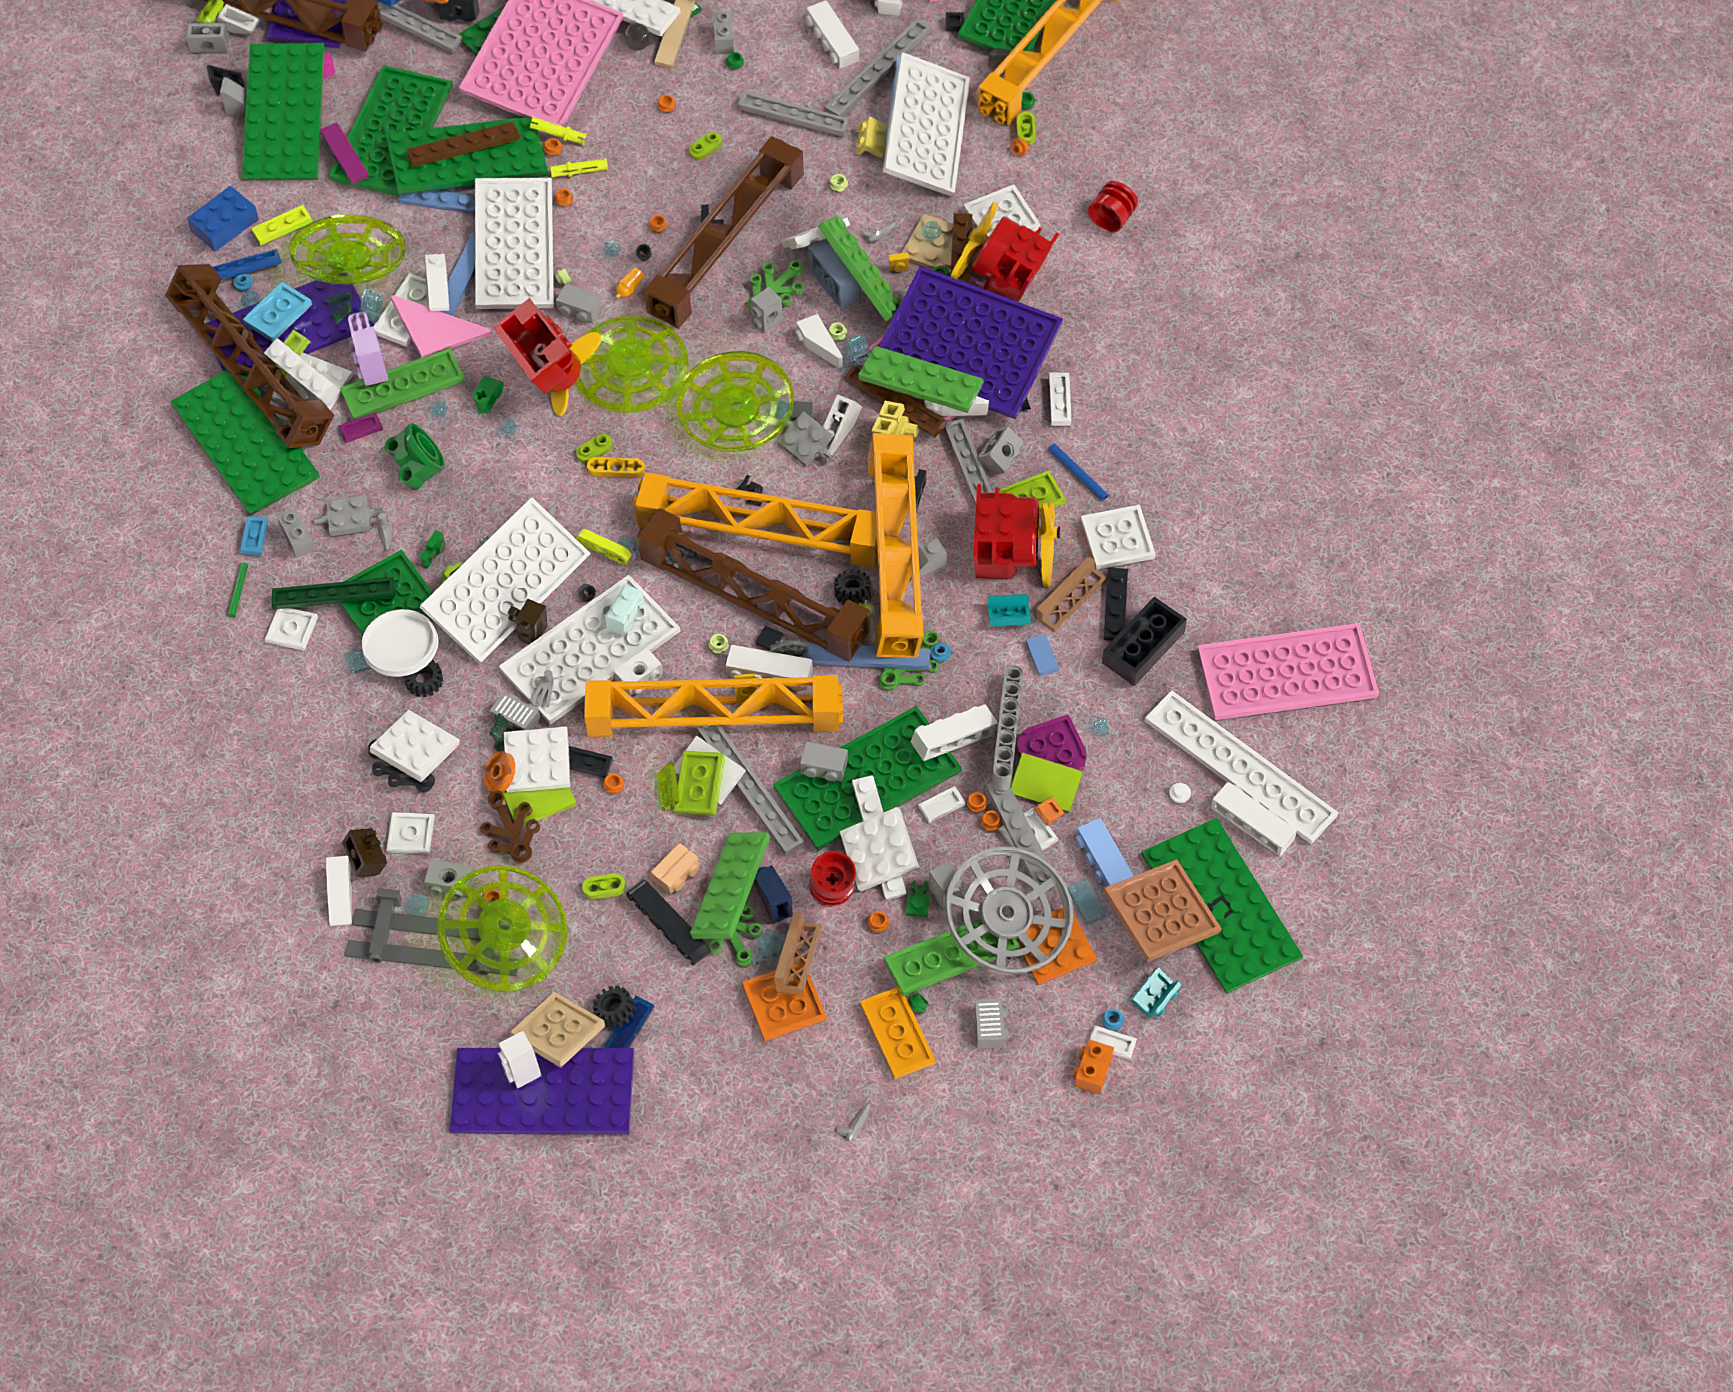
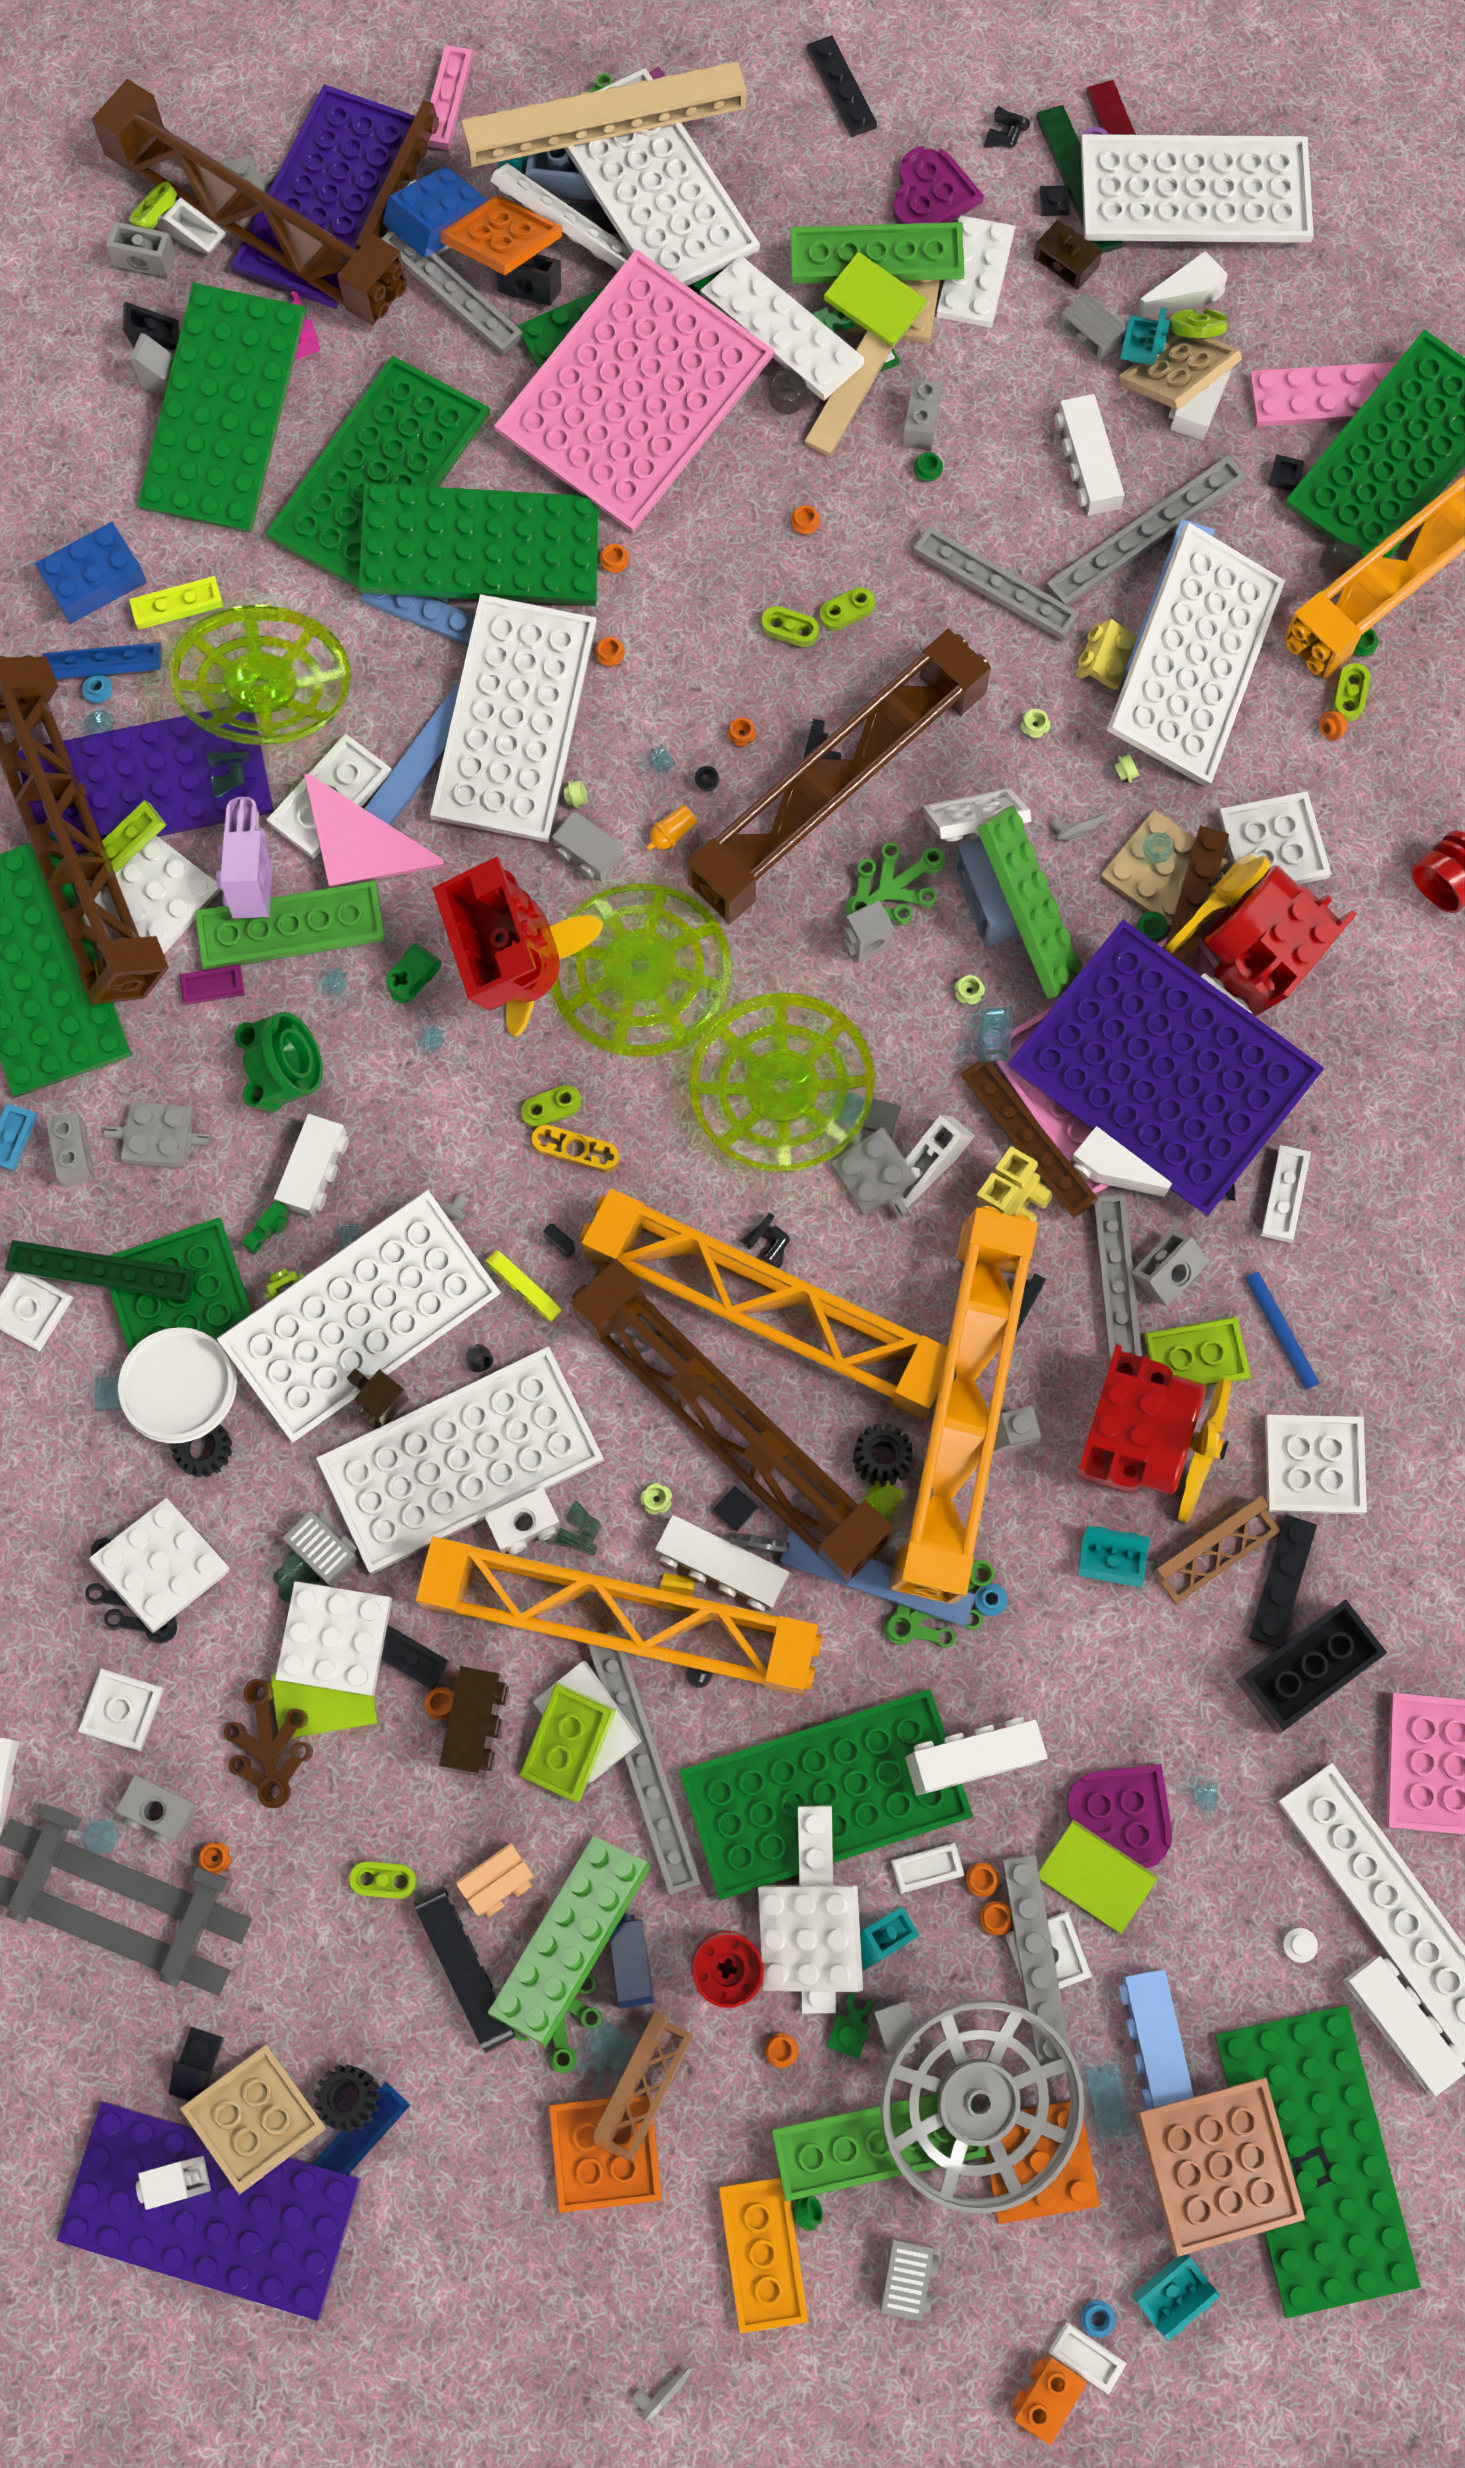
camera: 15 degrees right, 15 degrees up
(277, 311) = (131, 759): medium azure plate -> none
(302, 371) = (139, 878): white brick -> none
(344, 153) = (296, 500): magenta tile -> none
(364, 852) = (42, 1733): dark brown brick -> none
(371, 304) = (274, 778): clear light blue plate -> none
(385, 531) = (205, 1176): light grey bar -> none
(437, 282) = (379, 766): white slope -> none
(453, 509) = (312, 1166): none -> white brick
(462, 144) = (475, 529): reddish brown plate -> none
(494, 936) = (204, 1903): clear neon green dish -> none
(500, 772) = (273, 1648): orange tile -> none
(511, 1013) = (194, 2069): none -> black slope
(546, 684) = (379, 1512): light grey piece -> none
(557, 130) = (638, 539): neon yellow pin -> none
(579, 167) = (632, 603): neon yellow pin -> none
(619, 517) = (559, 1240): none -> black tile
(624, 609) = (524, 1414): light aqua brick -> none
(628, 542) = (560, 1289): clear light blue plate -> none
(638, 782) = (474, 1722): none -> dark brown brick
(667, 787) = (519, 1734): clear neon green plate -> none
(673, 161) = (792, 624): none -> lime plate
(674, 670) = (584, 1543): none -> clear green piece
(771, 731) = (698, 1678): none -> black hinge
(818, 340) = (934, 995): white slope -> none
(824, 761) = (762, 1760): light grey brick -> none
(899, 262) = (1094, 890): yellow plate -> none
(901, 195) = (1126, 768): none -> yellowish green plate
(921, 379) = (1076, 1121): bright green plate -> none
(926, 844) = (886, 1937): none -> teal slope
(1007, 728) = (1049, 1781): light grey beam -> none
(1042, 655) = (1146, 1643): medium blue tile -> none
(1049, 811) = (1089, 1929): orange tile -> none

